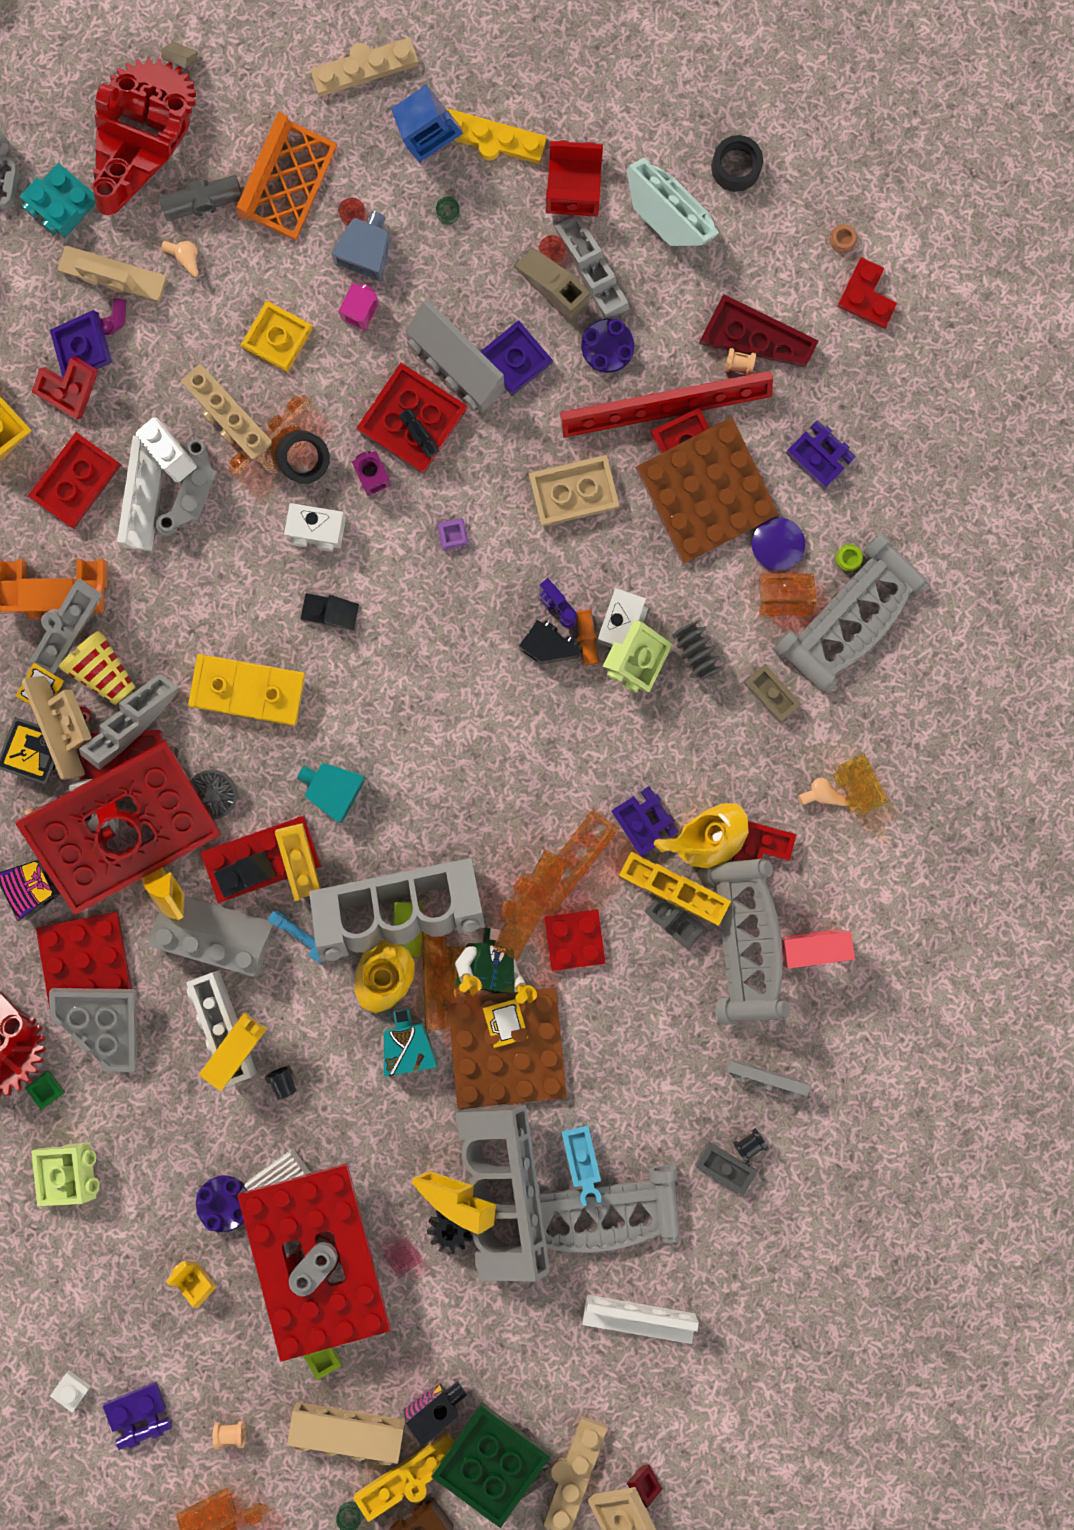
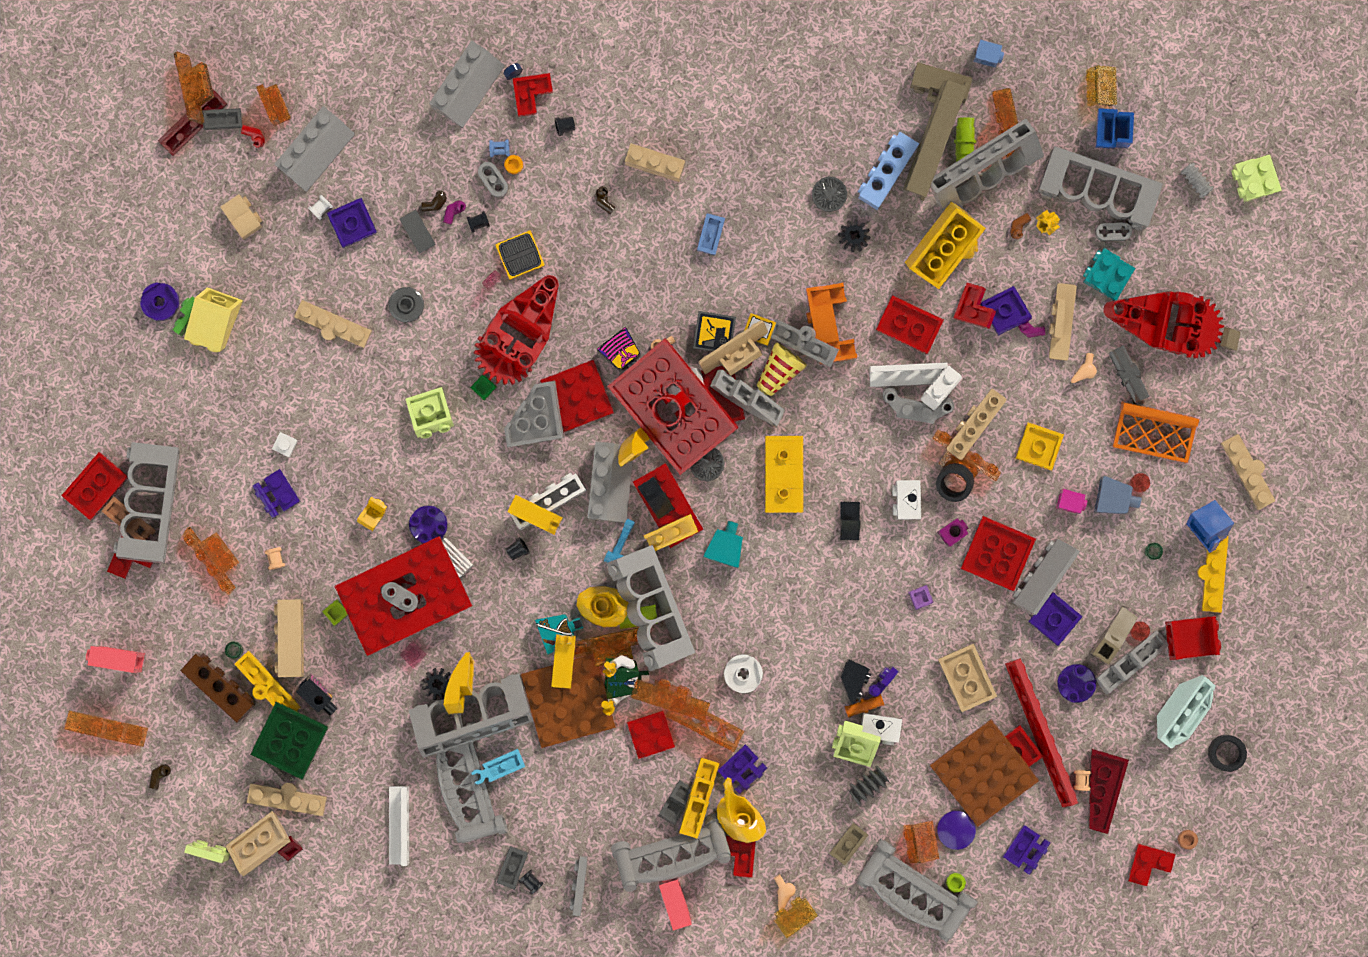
camera: 80 degrees right, 0 degrees up
(419, 433) = (987, 561): black axle -> none
(449, 1046) = (563, 661): none -> yellow hinge
(501, 786) = (752, 679): none -> white plate
(503, 1019) = (587, 695): sticker -> none

